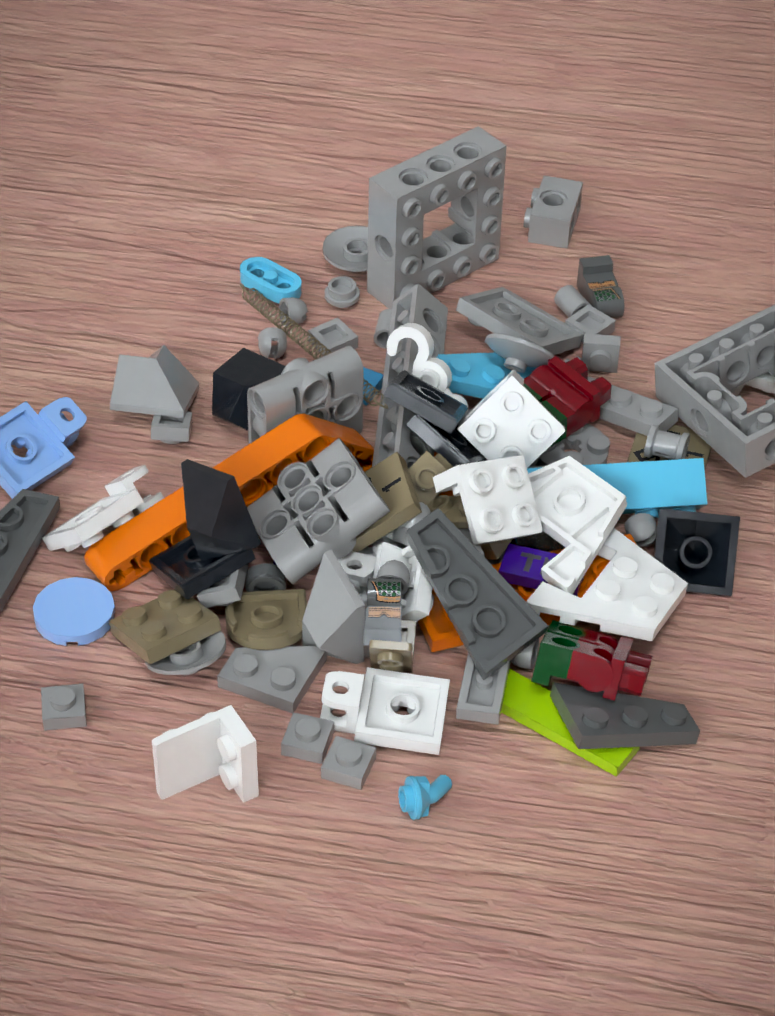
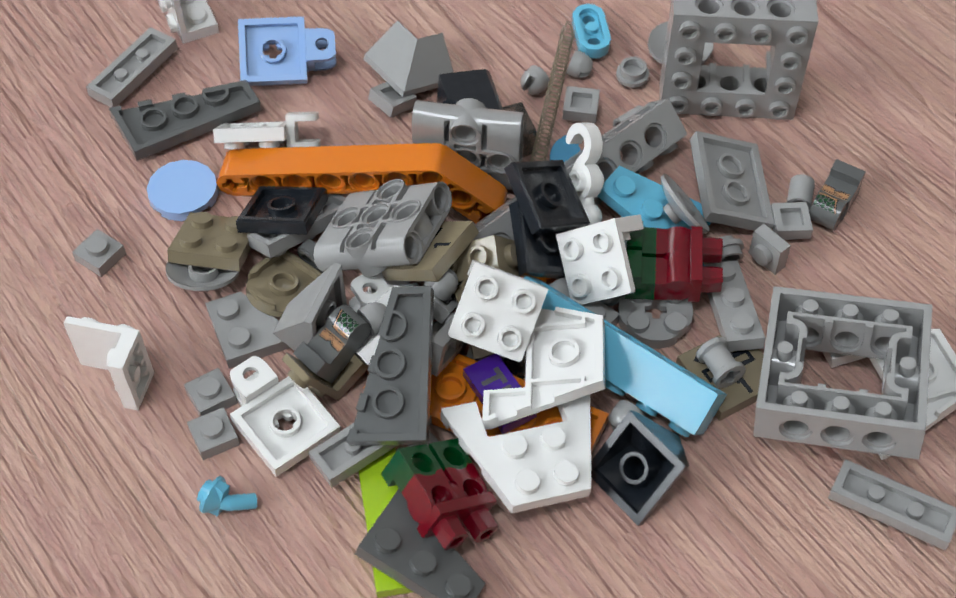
camera: 45 degrees right, 10 degrees up
(216, 512) = (293, 180): black slope -> none
(553, 211) = (875, 108): light grey brick -> none

